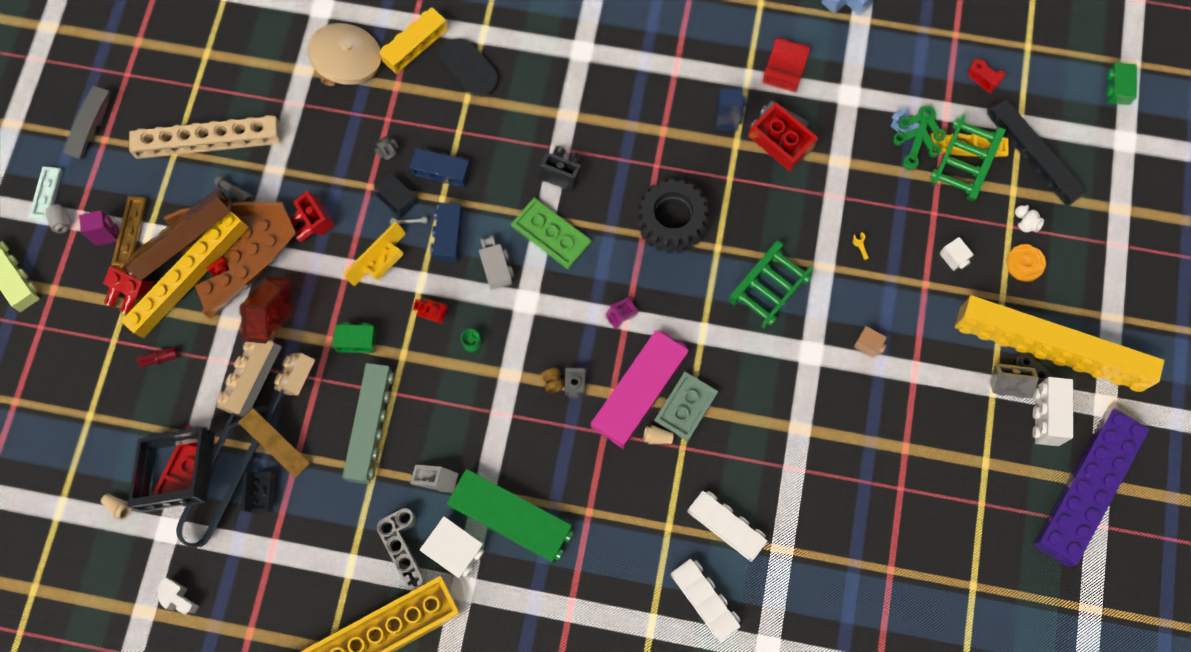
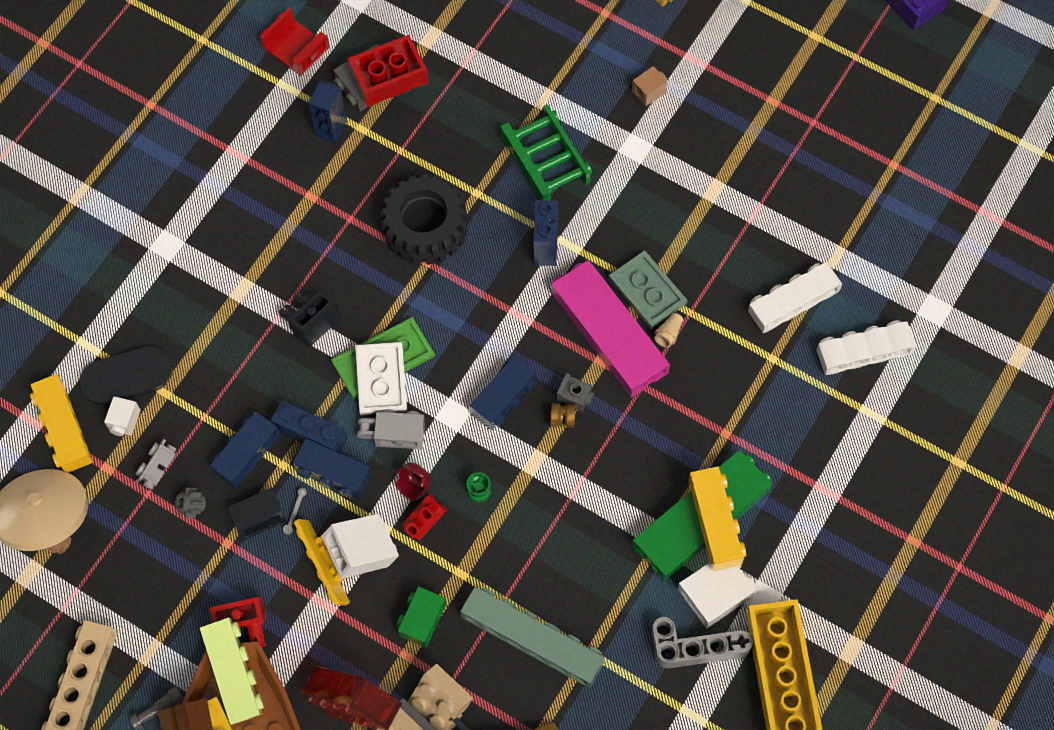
camera: 70 degrees left, 5 degrees down
(265, 223) = (231, 671): none -> yellowish green brick
(391, 274) = (360, 545): none -> white brick
(416, 114) = (159, 456): none -> light grey hinge
(434, 77) = (122, 416): none -> white brick
(434, 478) = (627, 583): light grey arch -> none
(458, 292) = (413, 481): none -> dark red hair
(471, 204) = (304, 425): none -> dark blue brick
(500, 525) = (716, 518): none -> yellow brick
(531, 237) = (381, 378): none -> white tile
(553, 330) = (503, 393): none -> dark blue brick
(621, 312) = (513, 316): magenta bracket -> none
(699, 304) = (545, 233): none -> dark blue window
(860, 243) = (534, 54): yellow hand -> none

